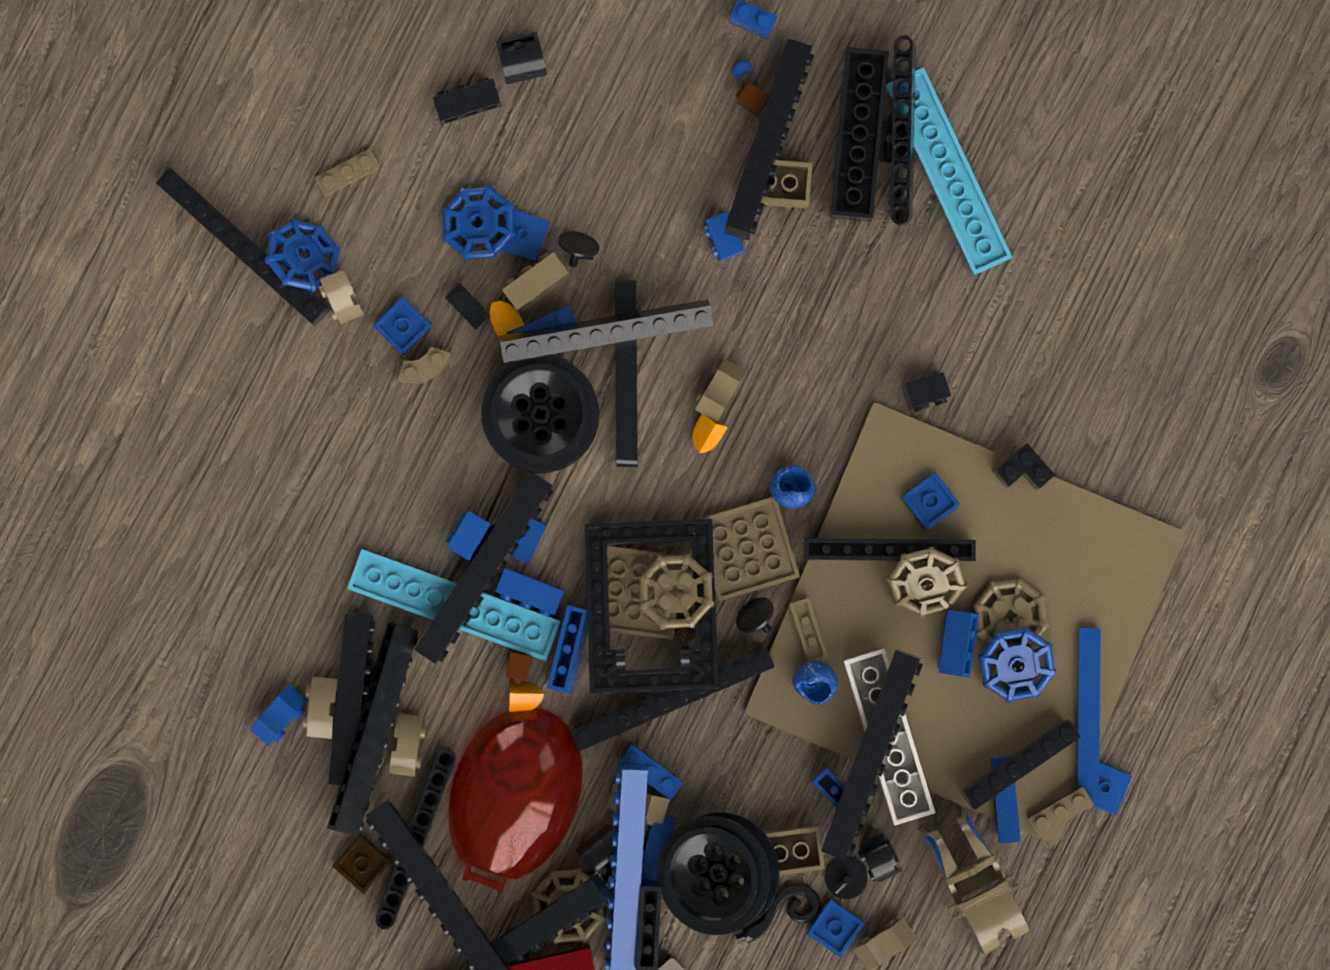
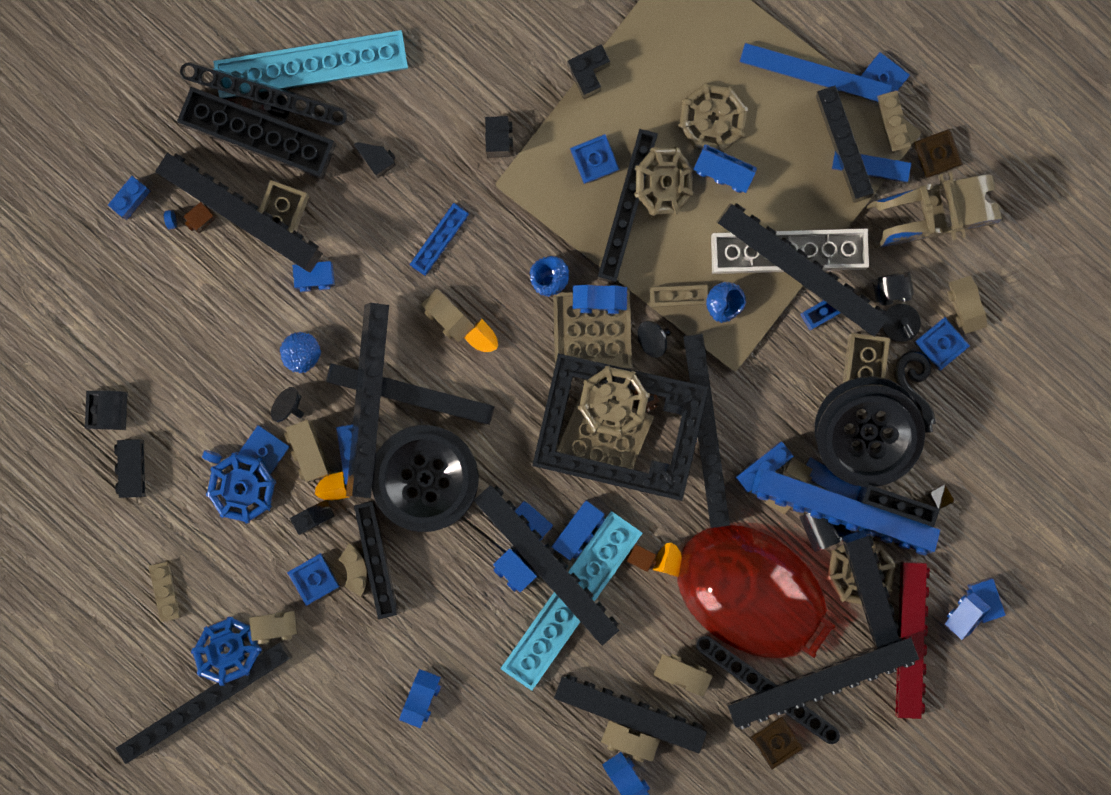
camera: 75 degrees left, 0 degrees up
(307, 472) = (420, 698): none -> blue brick
(373, 729) = (662, 701): black brick -> none
(440, 386) = (376, 560): none -> black brick
(502, 182) = (211, 456): none -> blue tile
(569, 650) = (639, 509): blue brick -> none
(638, 245) = (300, 352): none -> blue hair
(783, 547) = (599, 298): none -> blue brick
(799, 359) = (439, 239): none -> blue tile
(868, 268) = (376, 157): none -> black slope
(1008, 656) = (749, 130): plate -> none
(1039, 868) = (938, 153): none -> dark brown plate

